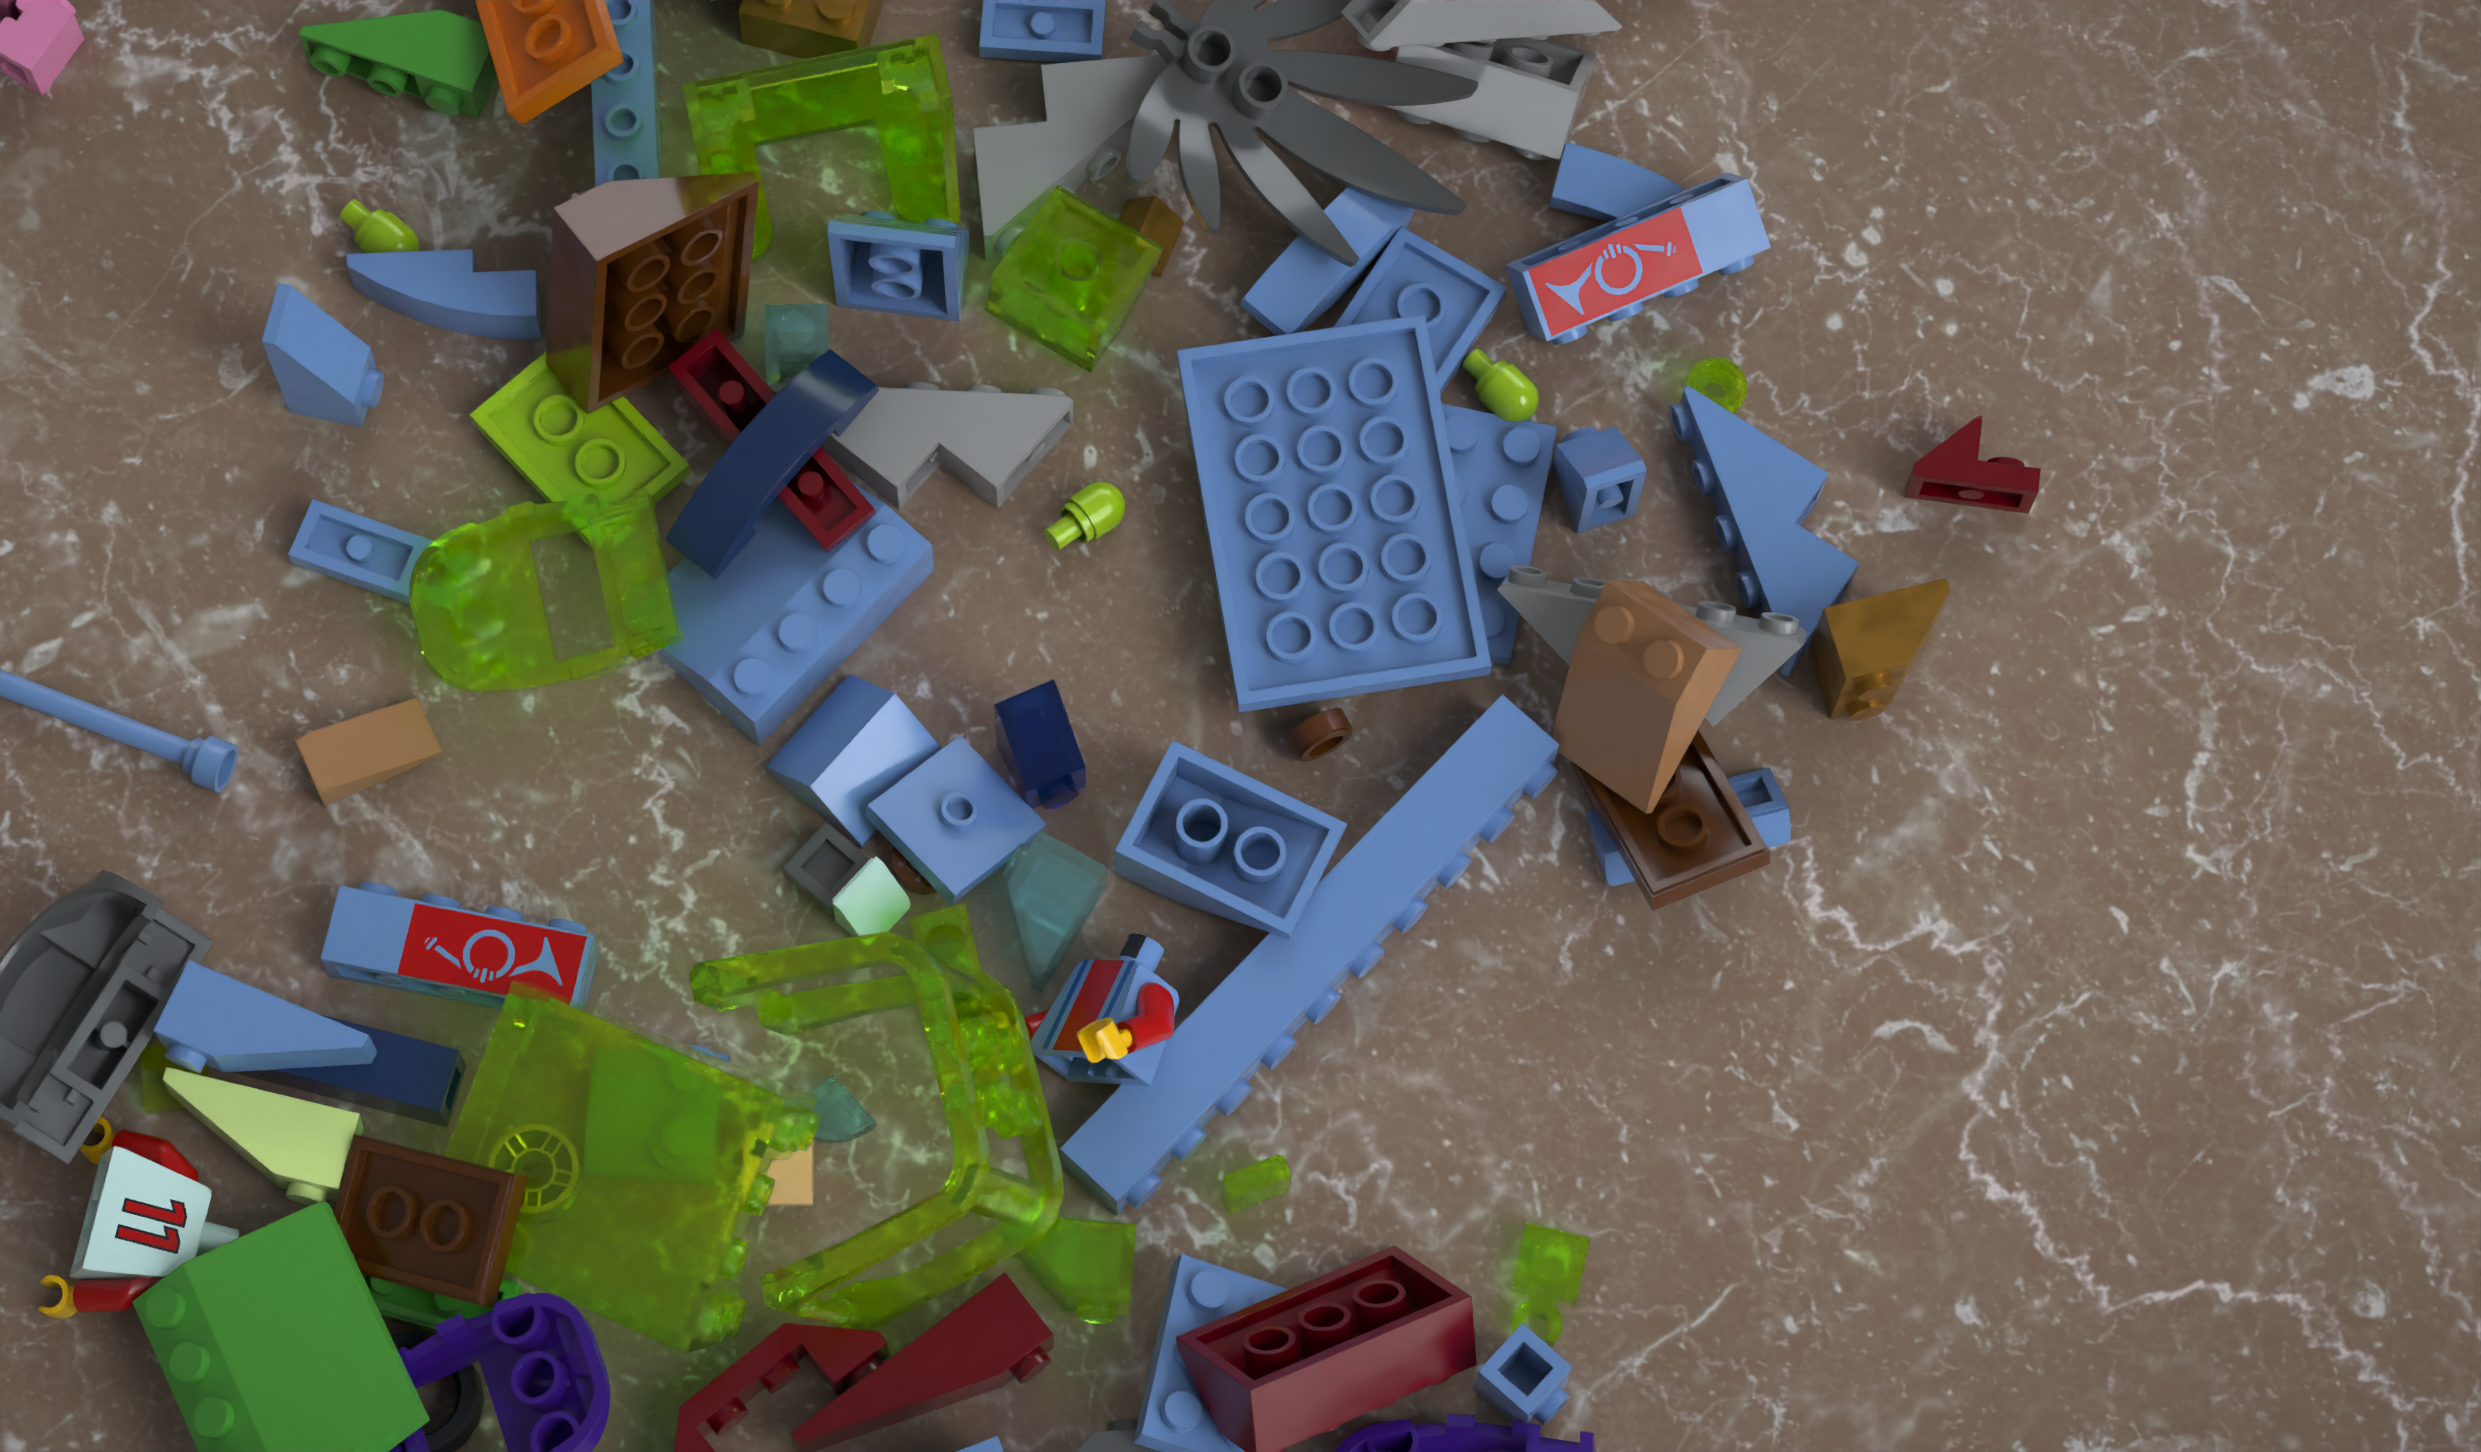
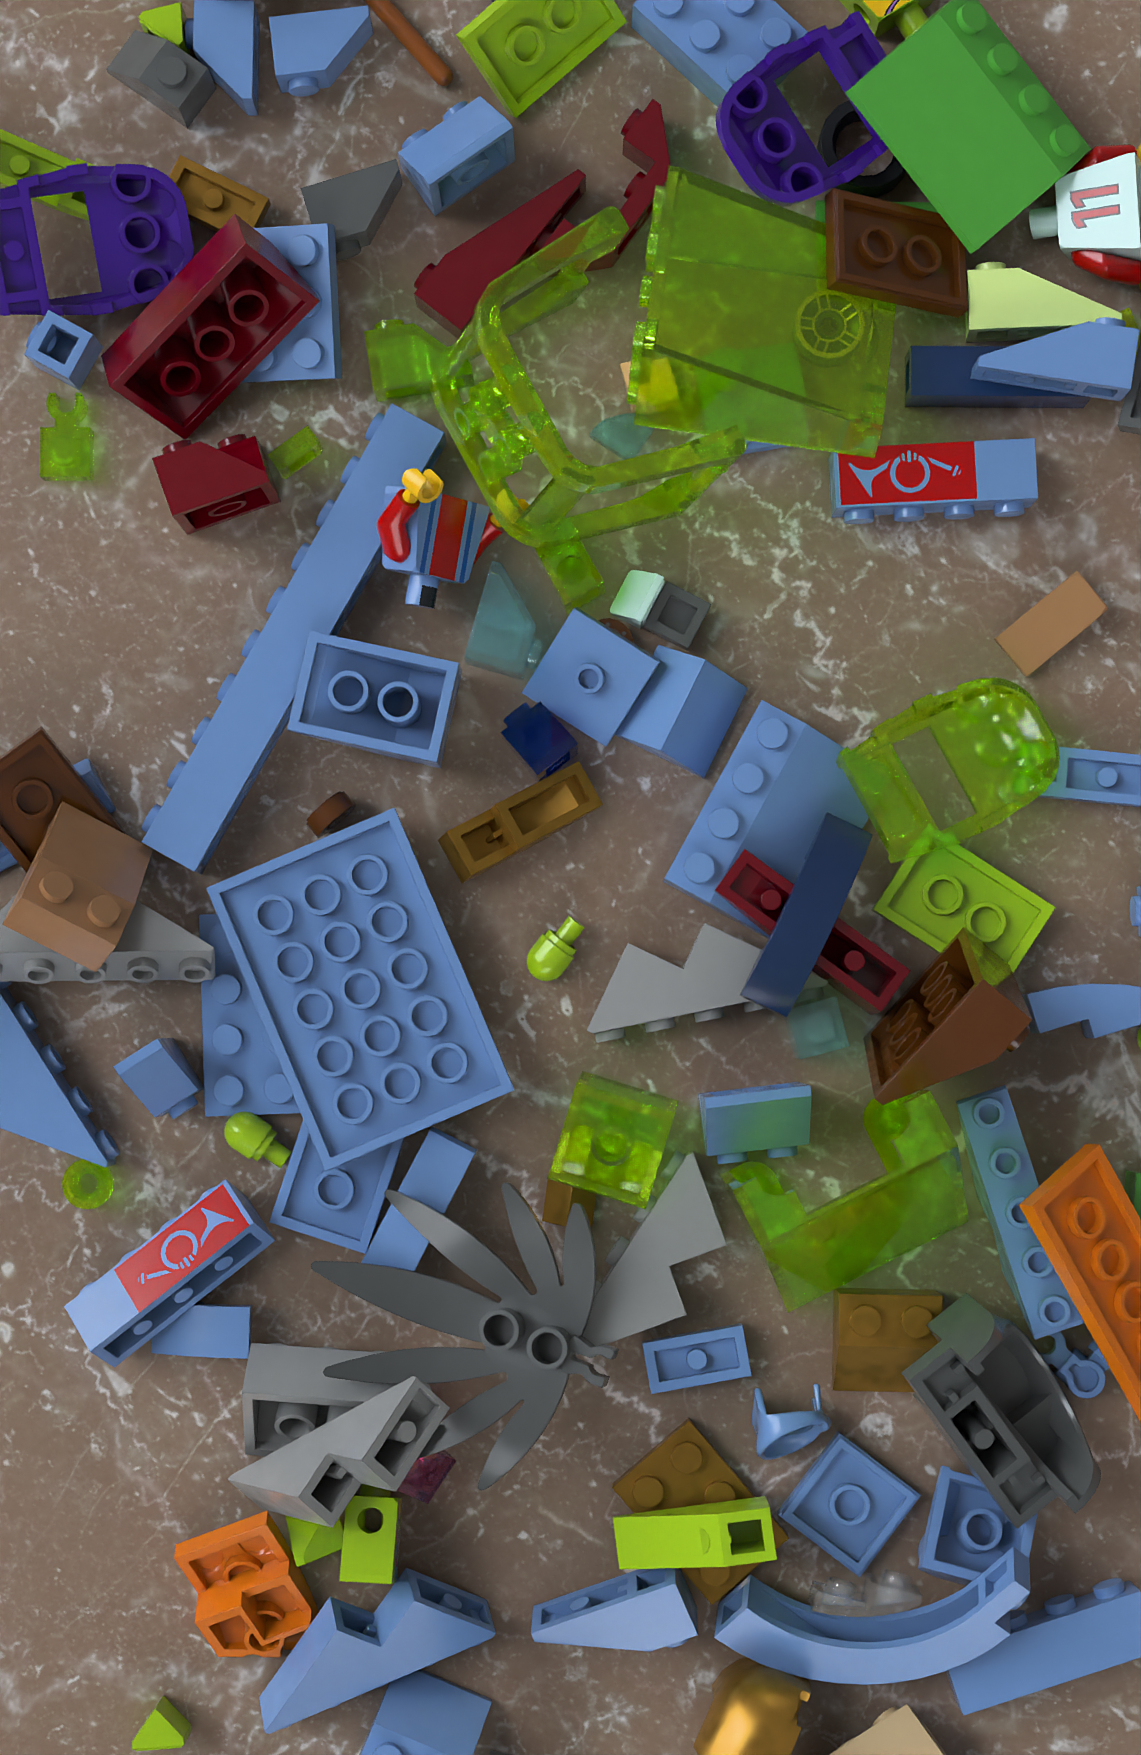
camera: 175 degrees right, 15 degrees up
(1100, 664) = (519, 822): none -> pearl gold slope
(1363, 1160) = (213, 483): none -> dark red slope

